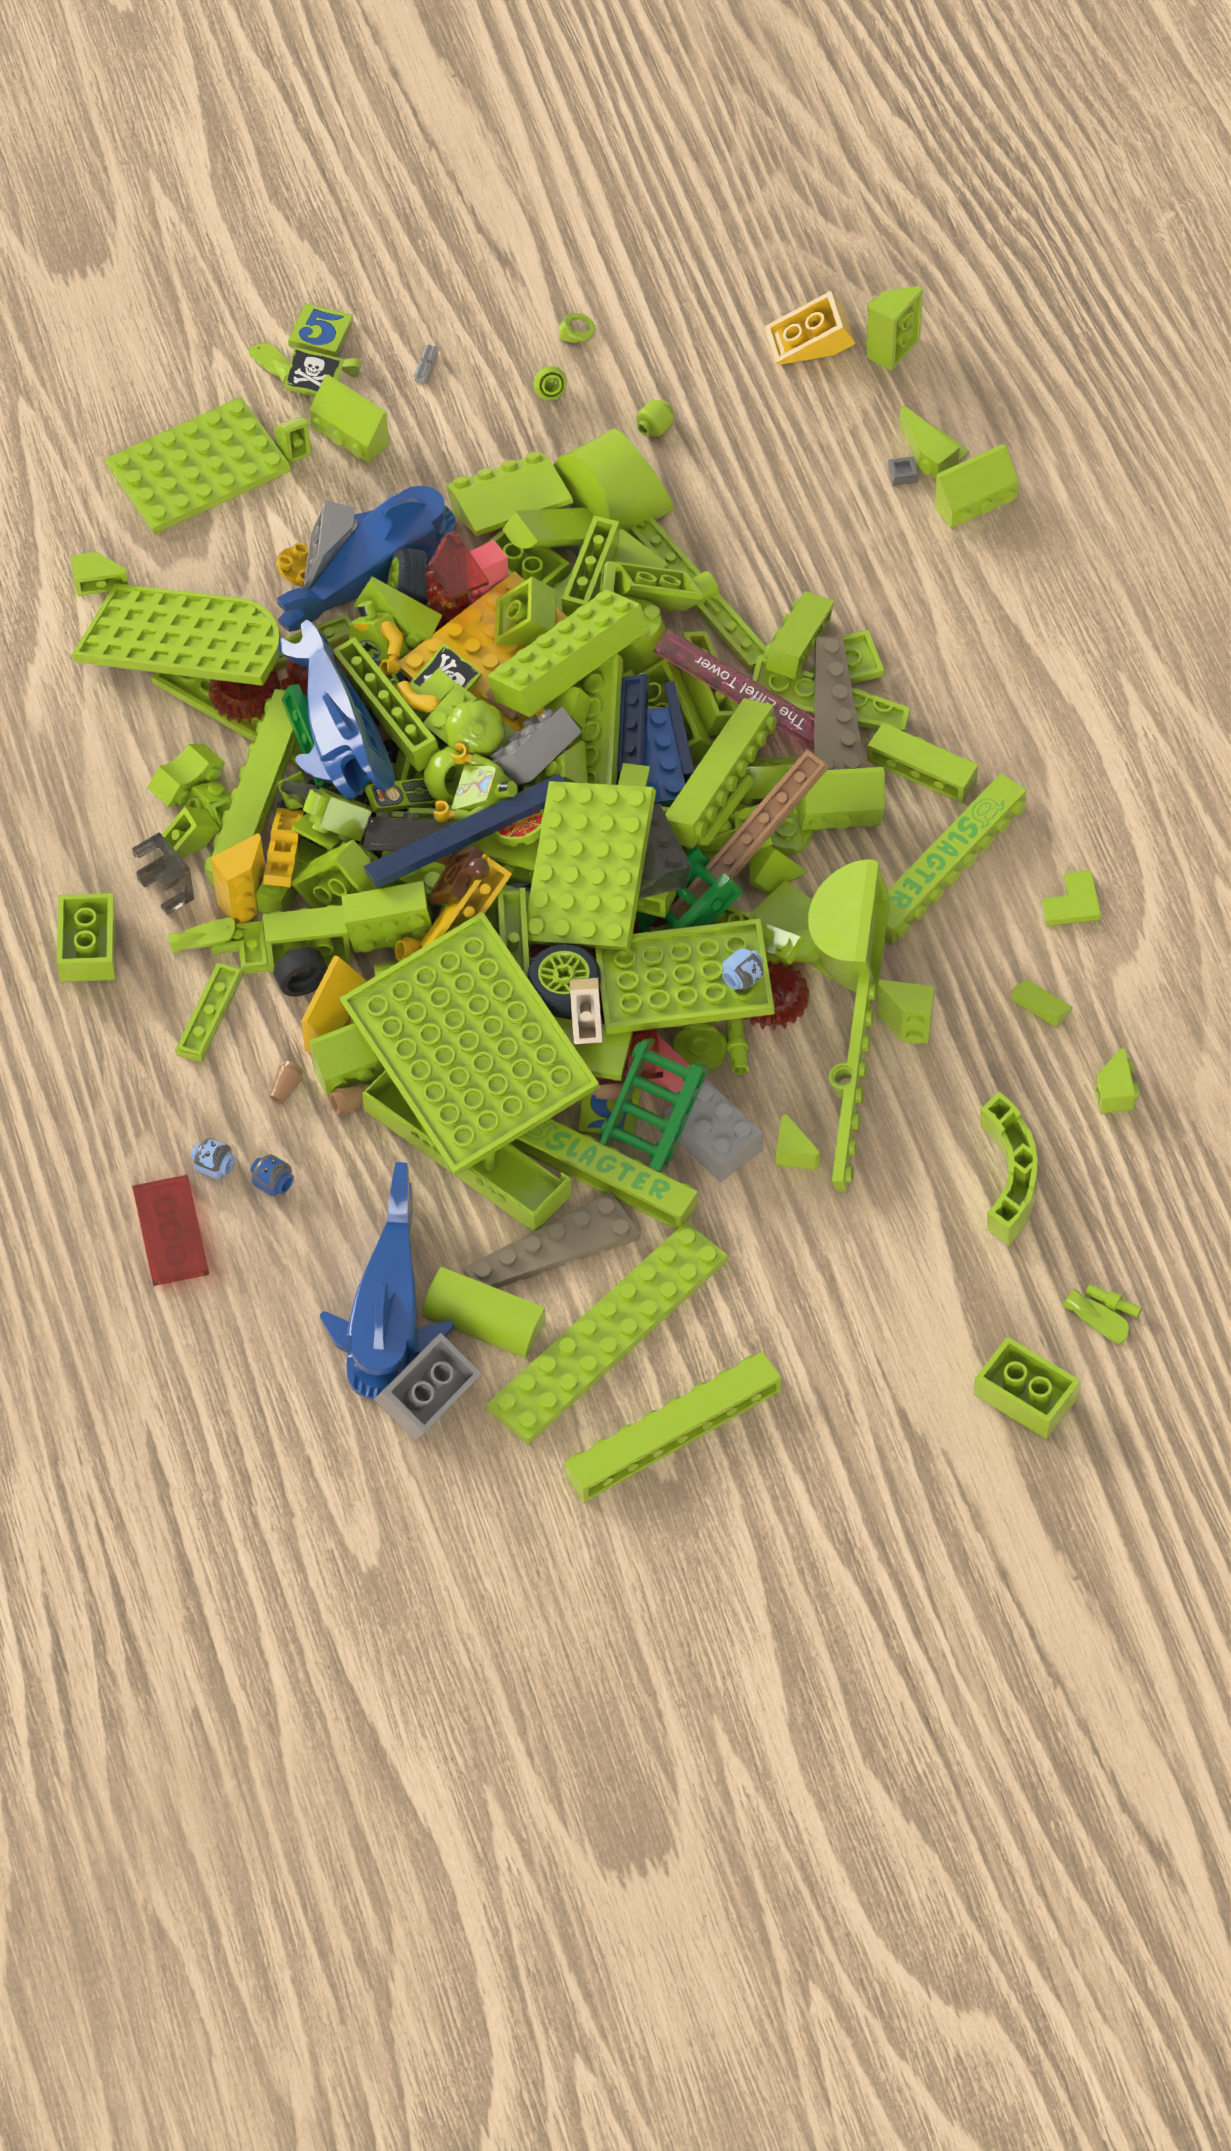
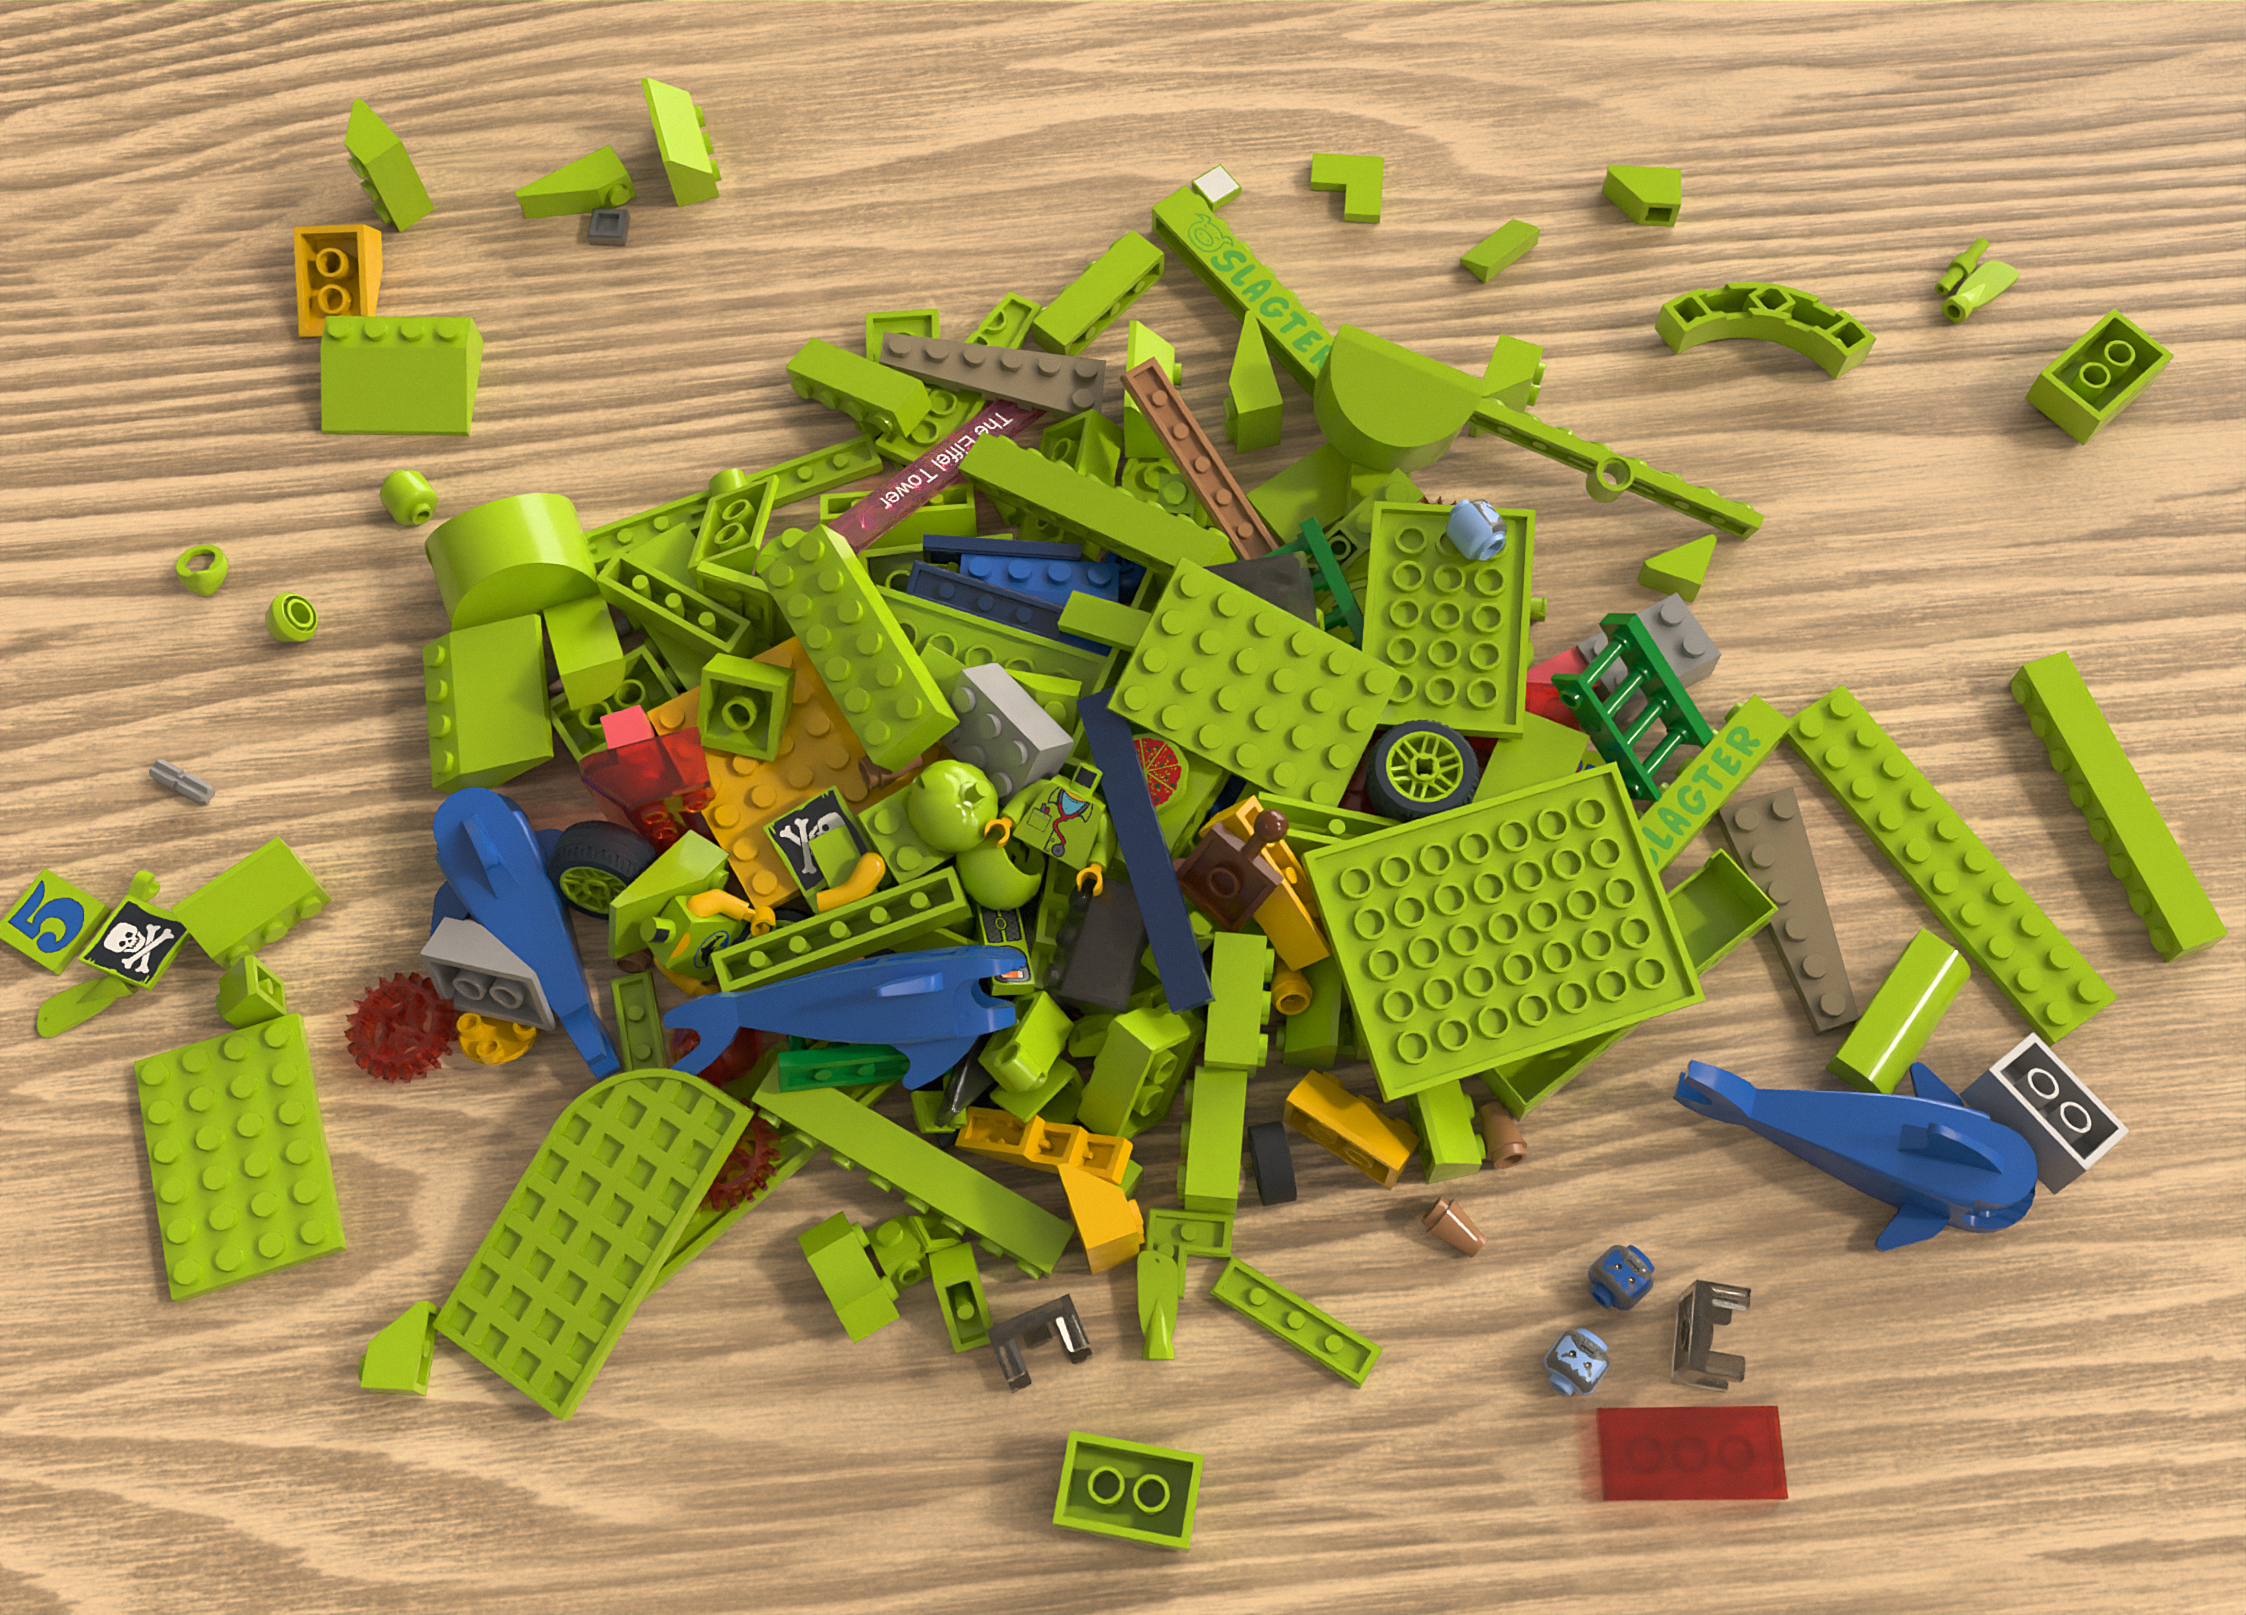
camera: 75 degrees left, 10 degrees up
(239, 1209) = (1697, 1310): none -> clear smoke panel
(288, 517) = (388, 1057): none -> clear red gear
(585, 1011) = (1506, 746): tan brick -> none
(745, 387) = (399, 375): none -> lime slope
(889, 849) = (1254, 398): none -> lime slope
(1044, 818) = (1216, 187): none -> white tile

